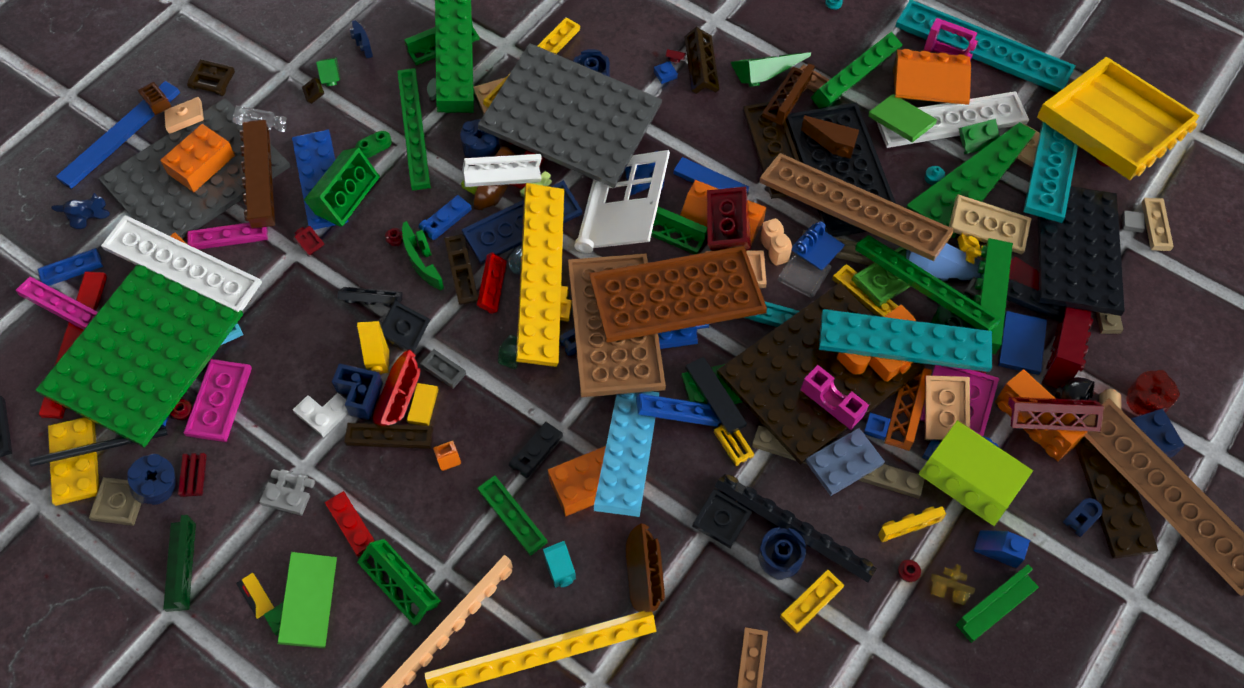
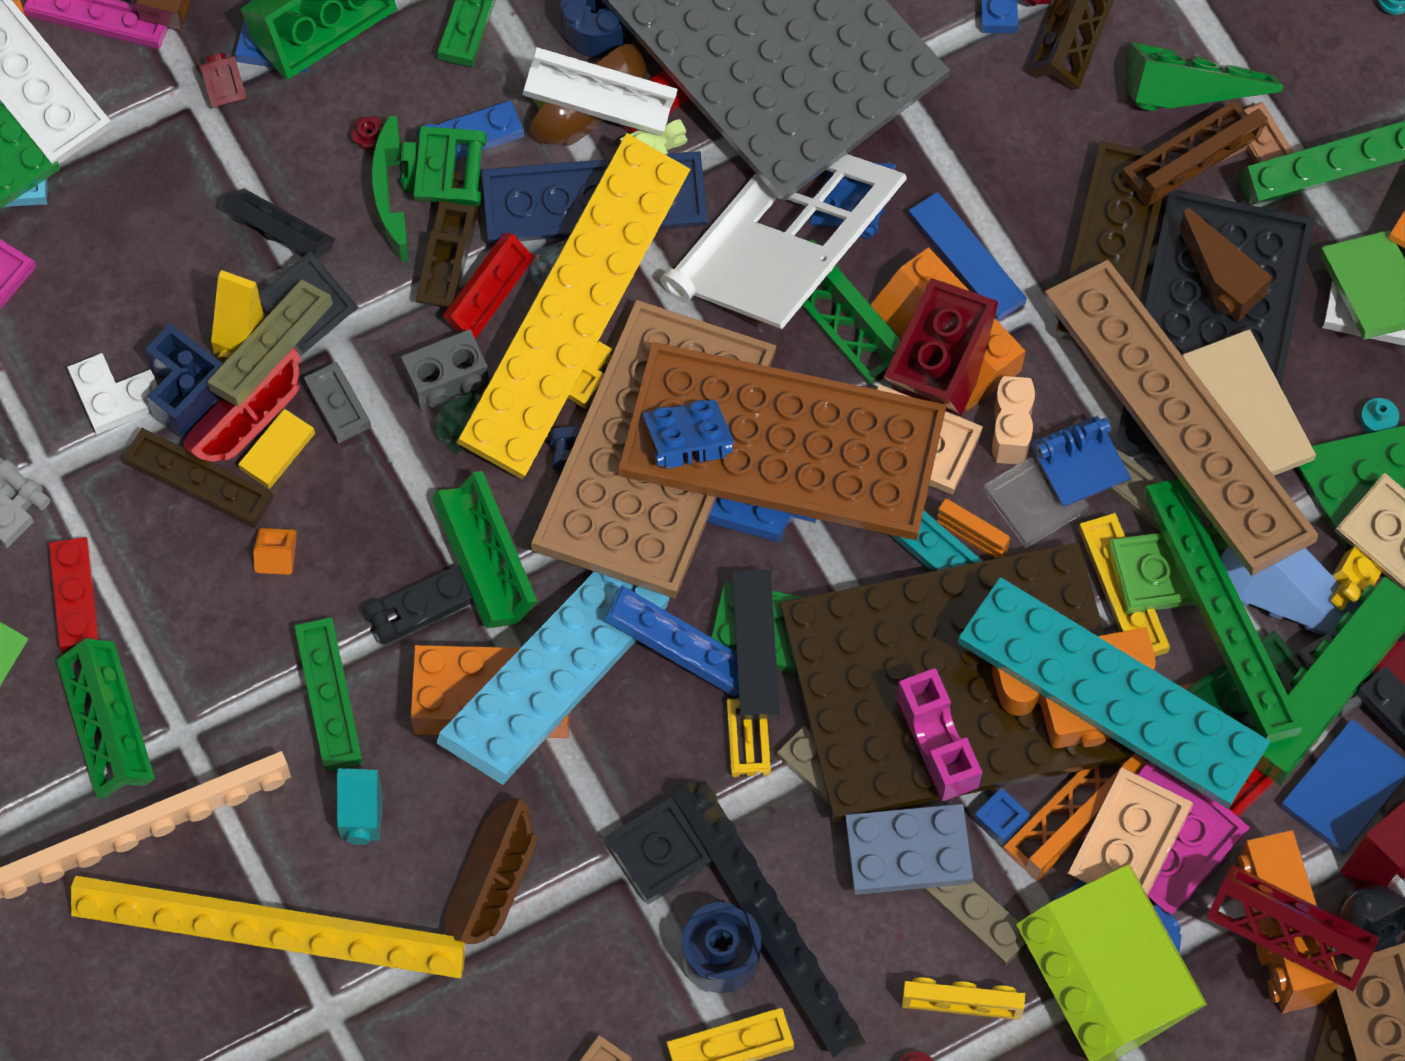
camera: 25 degrees right, 5 degrees up
(396, 352) = (270, 343): none -> olive plate
(438, 235) = (437, 165): none -> green plate
(486, 328) = (441, 361): none -> dark grey brick
(555, 412) = (481, 554): none -> green fence
(633, 307) = (688, 430): none -> blue hinge
(787, 298) = (973, 530): none -> orange tile
(875, 182) = (1253, 400): none -> tan tile

